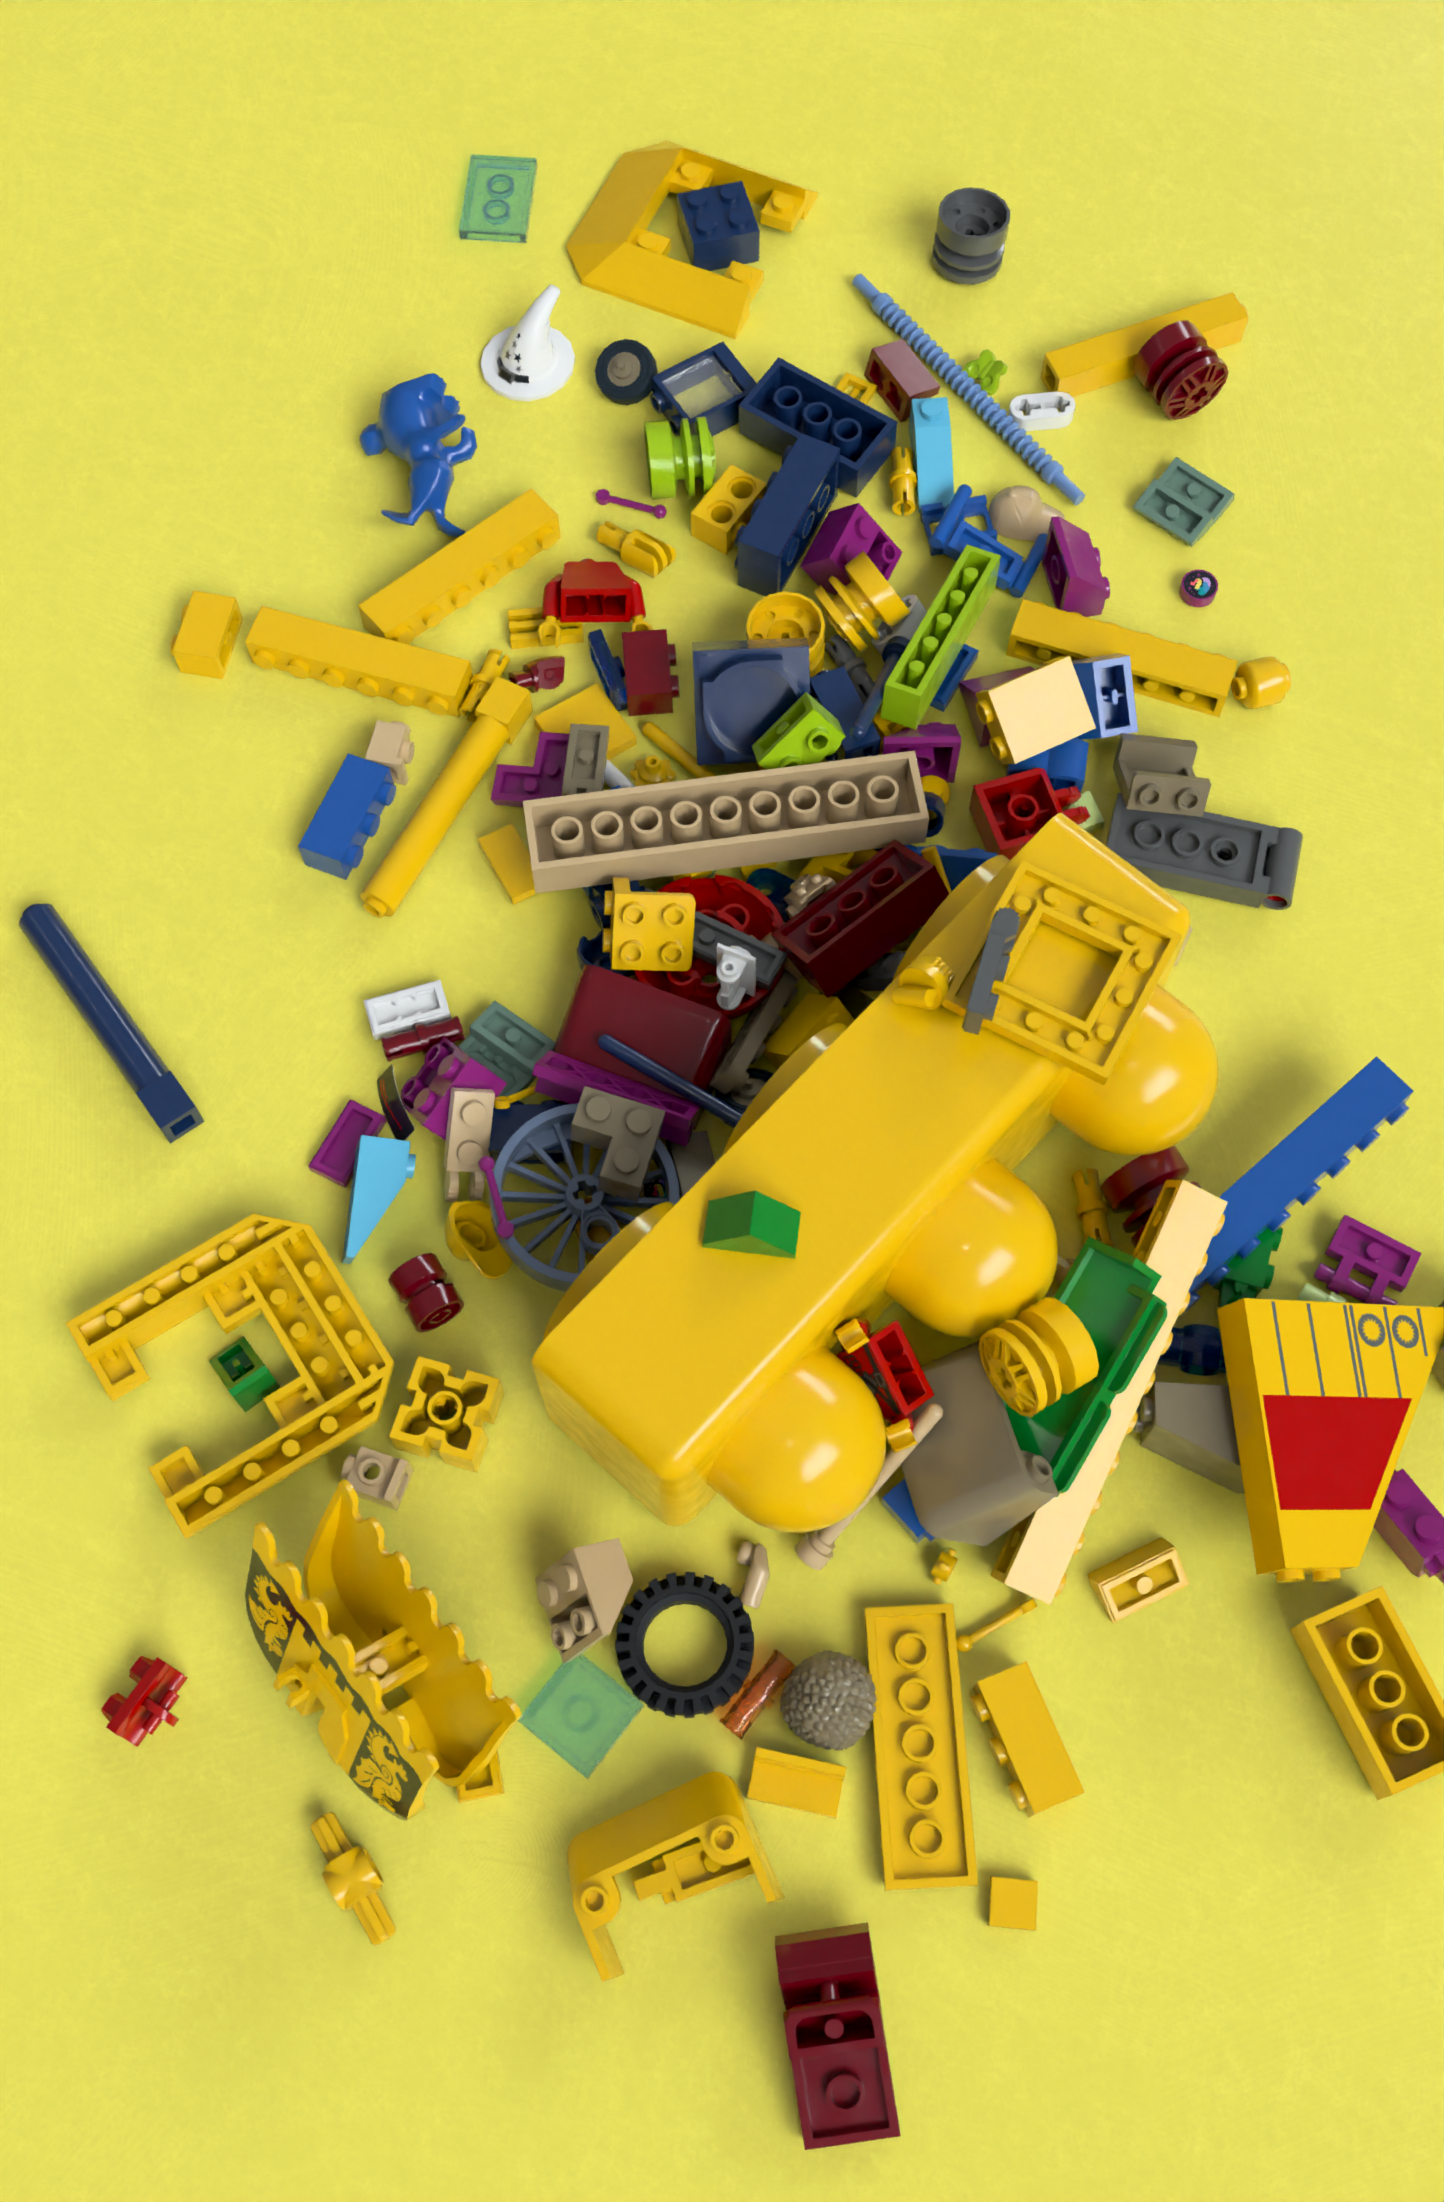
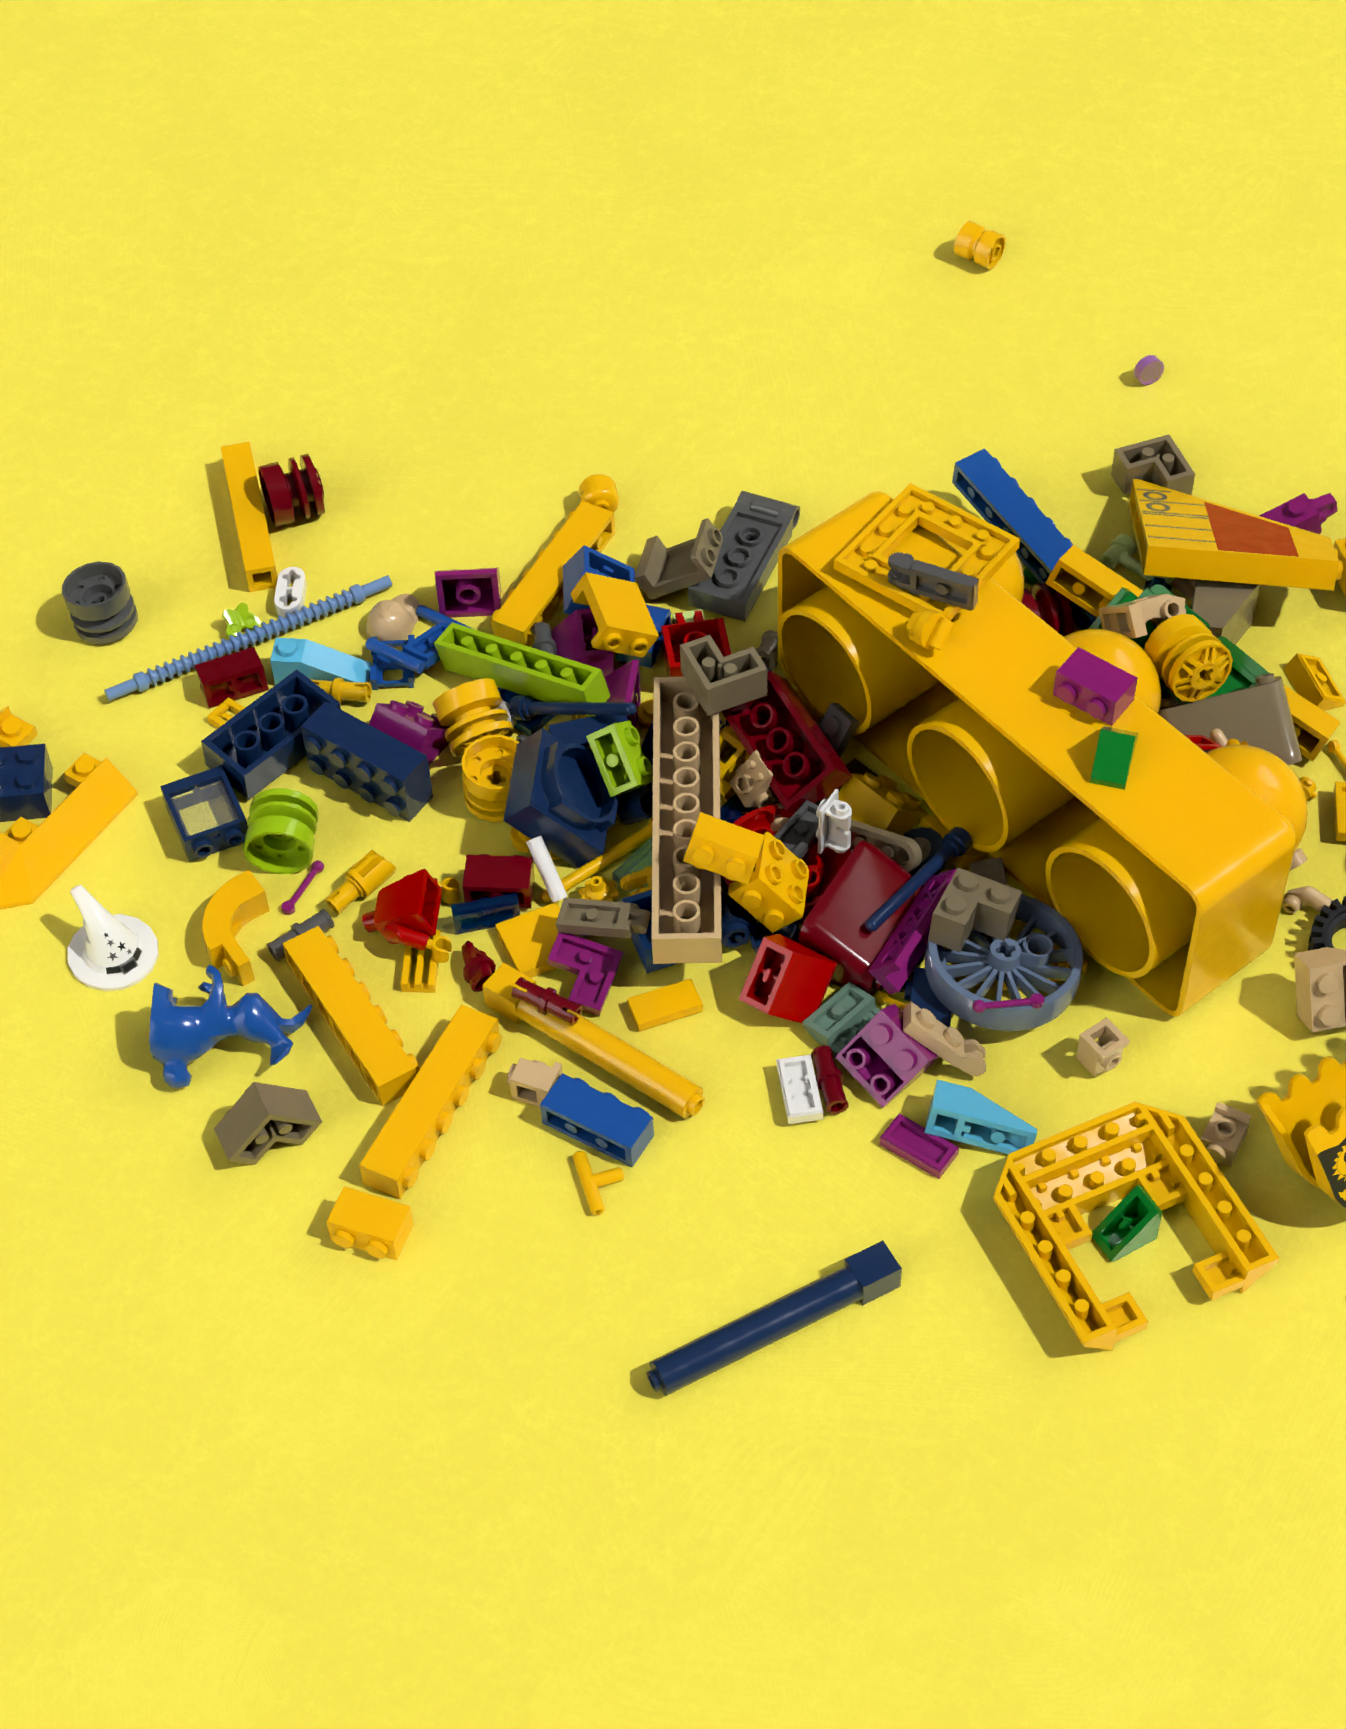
camera: 80 degrees left, 15 degrees down
(279, 827) = (591, 1182): none -> yellow piece
(312, 517) = (263, 1117): none -> dark tan brick
(392, 1106) = (888, 1105): black sticker -> none
(423, 1288) = (1068, 1087): dark red wheel -> none
(435, 1392) = (1177, 1075): yellow brick -> none
(470, 733) = (547, 1001): none -> dark red pin
(473, 1238) = (1022, 1050): yellow piece -> none
(479, 1323) = (1106, 1052): none -> tan brick
(482, 681) = (454, 998): yellow pin -> none
(536, 968) = (787, 979): none -> red slope
(564, 507) = (320, 919): none -> dark grey pin
(565, 439) = (225, 915): none -> yellow arch
(625, 371) = (161, 868): black wheel -> none
(638, 845) = (723, 848): none -> yellow brick
(663, 711) = (546, 869): none -> white piece
(726, 508) = (340, 810): yellow brick -> none
(856, 1190) = (1094, 686): none -> magenta brick
(899, 807) = (721, 680): none -> dark tan brick
(993, 660) = (542, 638): none -> dark grey pin
(1100, 1288) = (1131, 616): none -> tan tile
(1184, 502) = (409, 518): sand green slope -> none
(1198, 588) = (495, 523): tile -> none
(1370, 1253) = (1083, 517): magenta plate -> none

